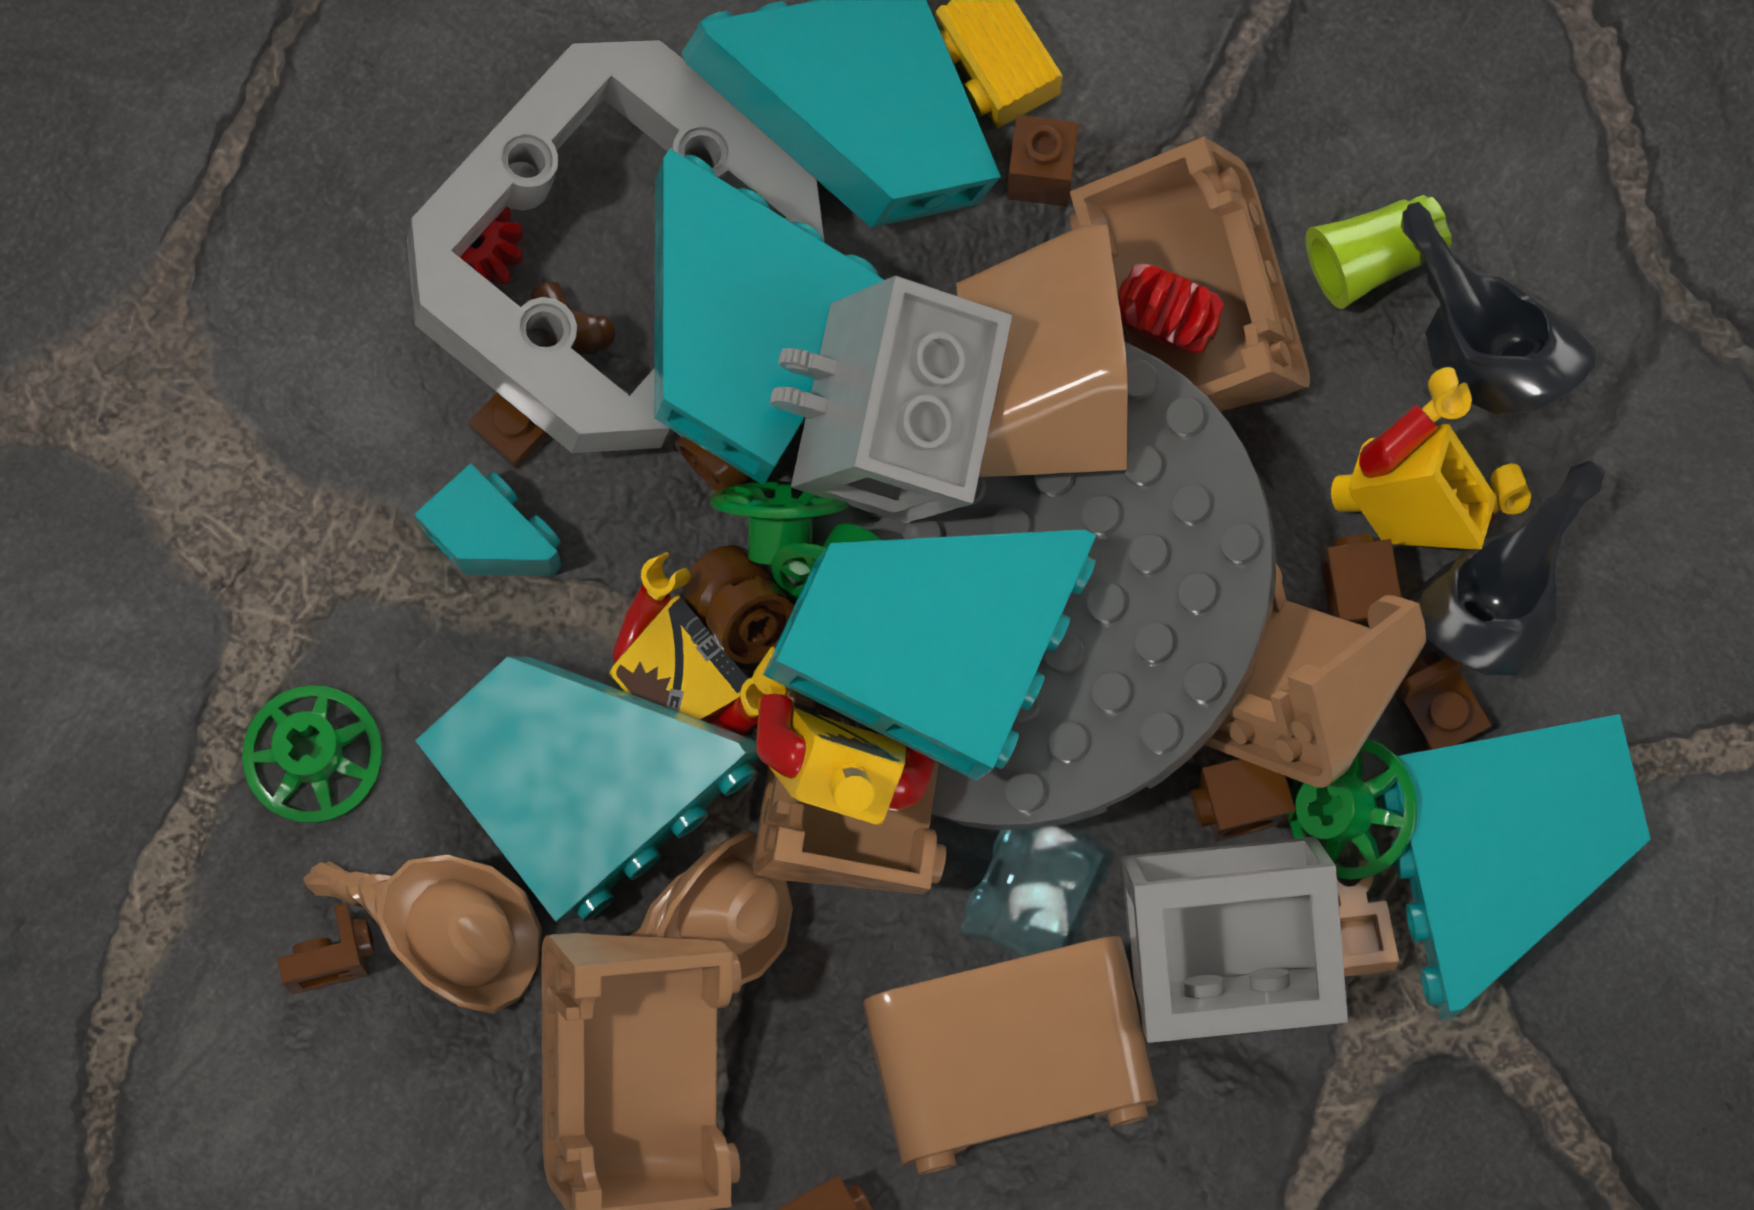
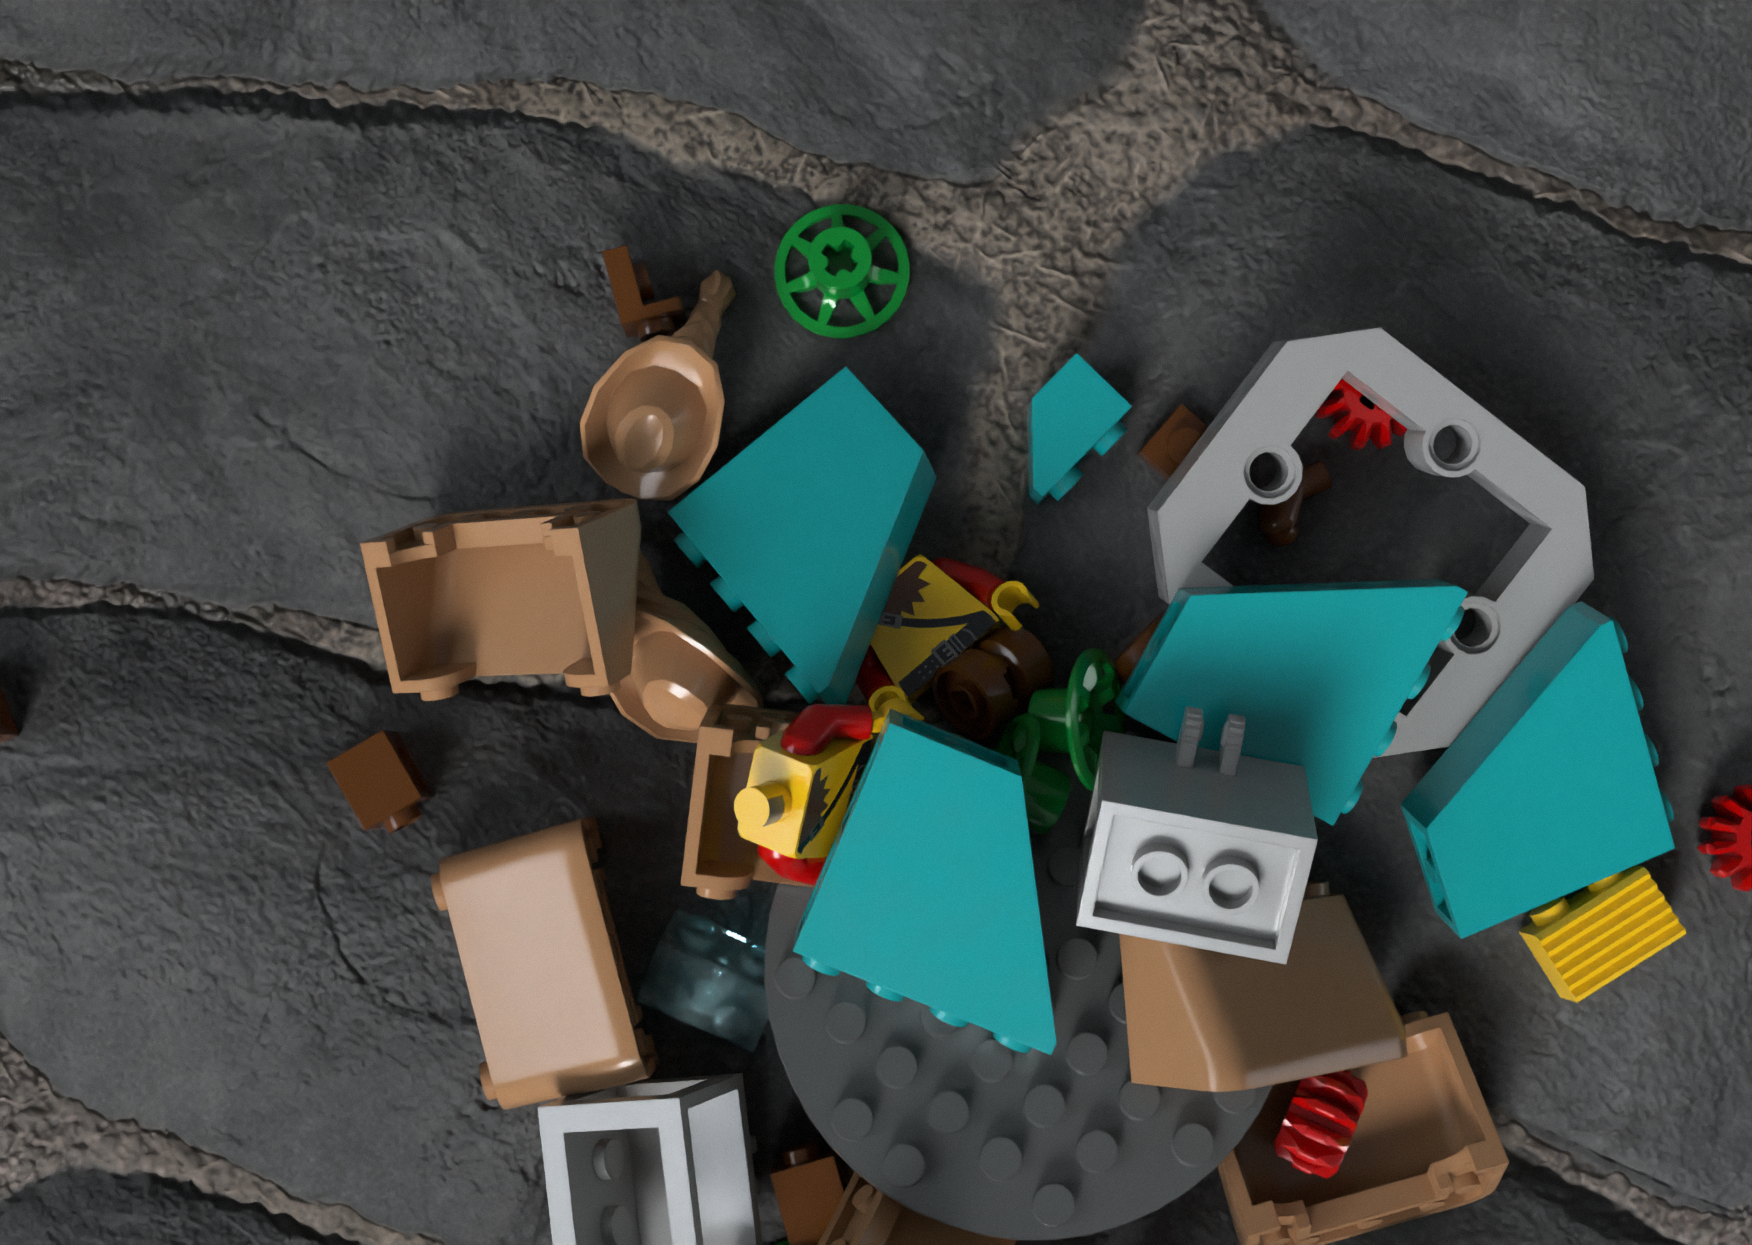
camera: 85 degrees right, 10 degrees up
(1042, 160) = (1483, 982): reddish brown brick -> none

